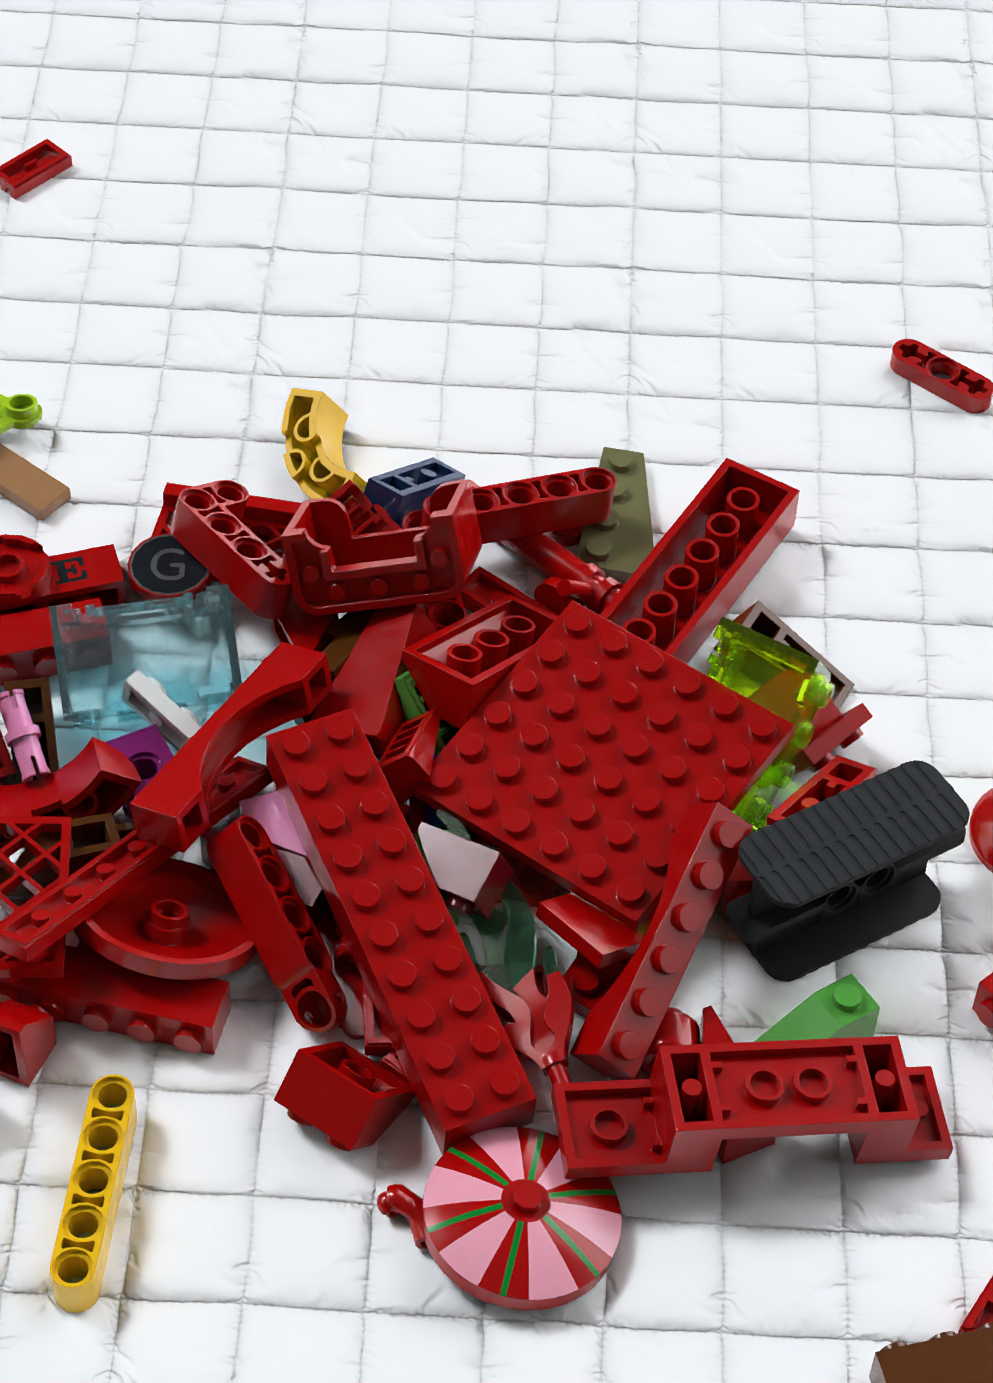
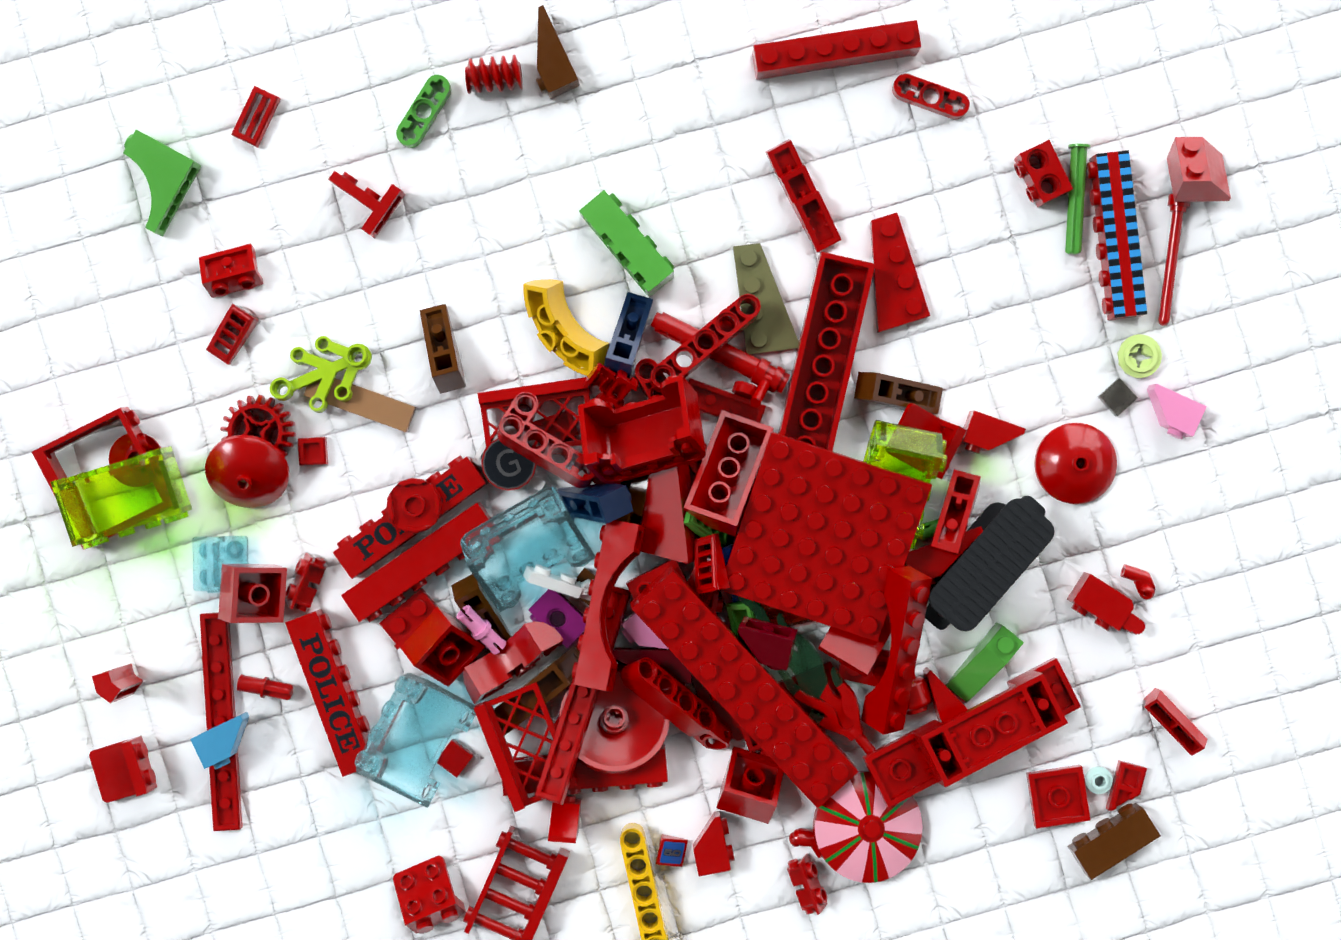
camera: 20 degrees left, 40 degrees up
(133, 280) = (381, 210): none -> red bracket
(141, 442) = (442, 349): none -> reddish brown slope
(167, 1153) = (671, 851): none -> slope
(227, 227) = (407, 125): none -> bright green beam
(238, 1162) = (710, 847): none -> red slope
(280, 619) = (598, 501): none -> dark blue slope
(357, 200) = (493, 74): none -> red piece
(382, 1257) = (813, 896): none -> red hinge
(441, 210) = (552, 61): none -> reddish brown slope
(459, 401) = (627, 243): none -> bright green wedge
(722, 412) = (803, 195): none -> red slope
(825, 291) = (836, 49): none -> red brick
(825, 546) = (896, 282): none -> red wing
(874, 1277) = (1058, 796): none -> red plate
(904, 736) = (987, 432): none -> red slope
(953, 1289) = (1092, 774): none -> light aqua plate

